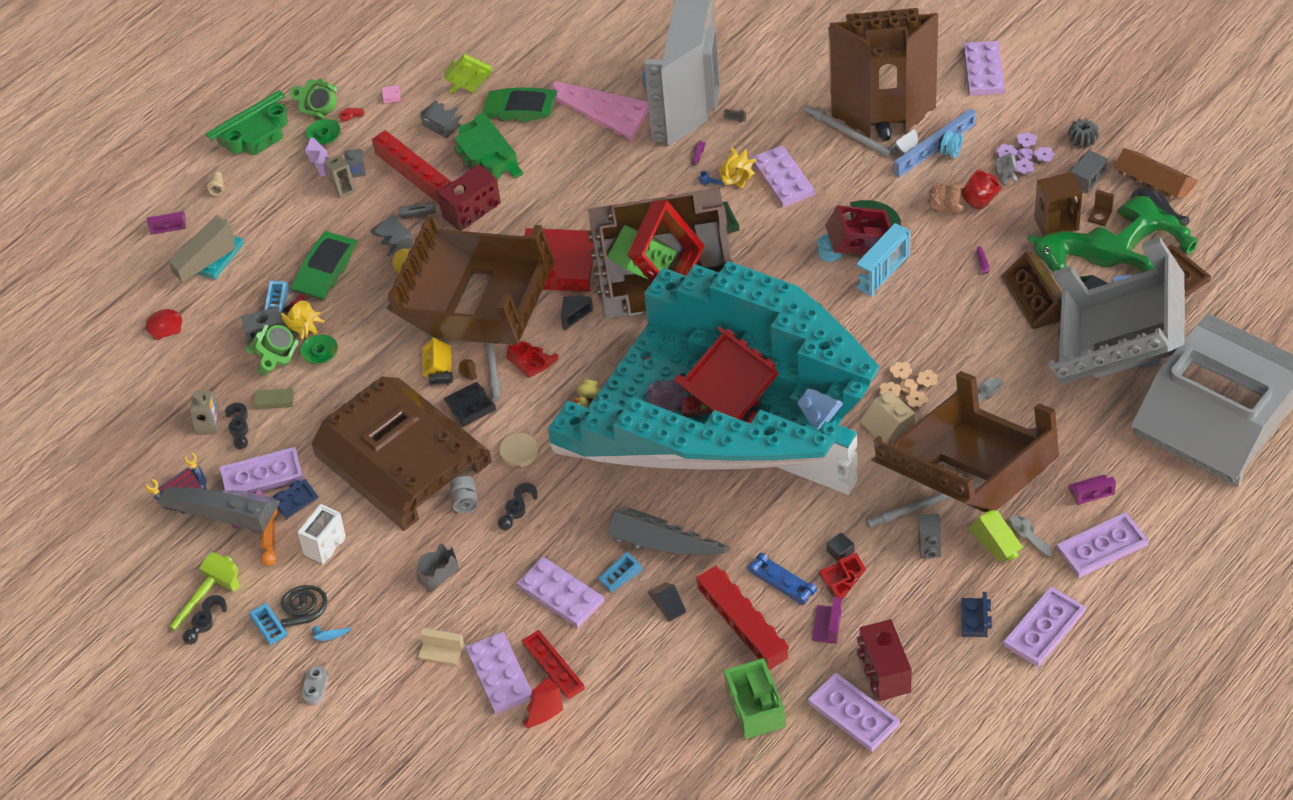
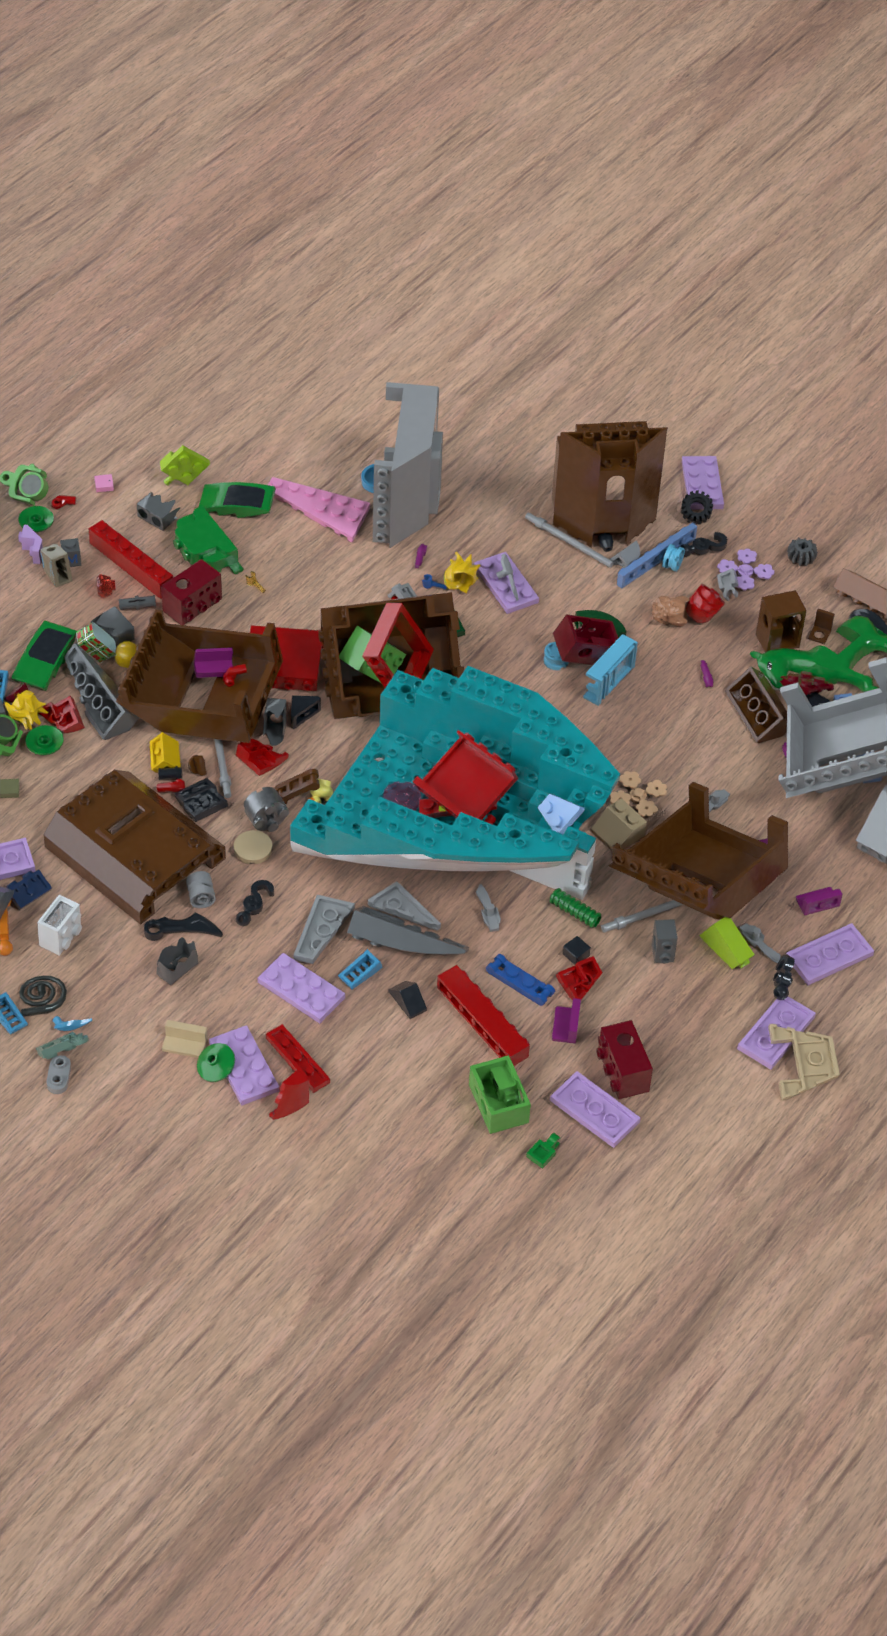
camera: 10 degrees left, 0 degrees up
(322, 653) = (65, 1043): none -> sand green hinge
(340, 324) = (64, 715): none -> red slope
(373, 250) = (96, 642): none -> piece
(373, 302) = (98, 695): none -> dark grey wedge
(386, 194) = (105, 586): none -> clear red cone
(443, 391) = (175, 786): none -> red arm
(456, 529) = (194, 923): none -> black piece
(475, 674) = (220, 1067): none -> green dish
(485, 266) = (212, 662): none -> magenta panel
(503, 276) = (232, 672): none -> red arm
(531, 184) = (253, 581): none -> clear yellow hand
(531, 411) = (266, 809): none -> flat silver brick
(545, 331) = (274, 730): none -> dark grey piece
(563, 387) = (298, 785): none -> reddish brown plate
(583, 527) = (322, 924): none -> light grey wing
(663, 503) = (402, 904): none -> light grey wing
(677, 188) = (402, 591): none -> light grey bracket
(735, 115) = (456, 519): clear smoke pin -> none
(753, 511) = (489, 913): none -> light grey piece
(783, 164) = (507, 570): none -> light grey piece
(798, 758) = (542, 1151): none -> green plate
(840, 503) = (575, 908): none -> green piece
(975, 616) = (710, 1020): dark blue bracket -> none
(976, 102) = (700, 498): none -> black tyre
(981, 131) = (702, 545): none -> black piece
(1051, 571) = (783, 977): none -> black piece
(1082, 653) = (813, 1057): none -> tan wing
(1085, 265) = (807, 682): none -> dark red plate
(1089, 170) = (809, 587): dark grey brick -> none

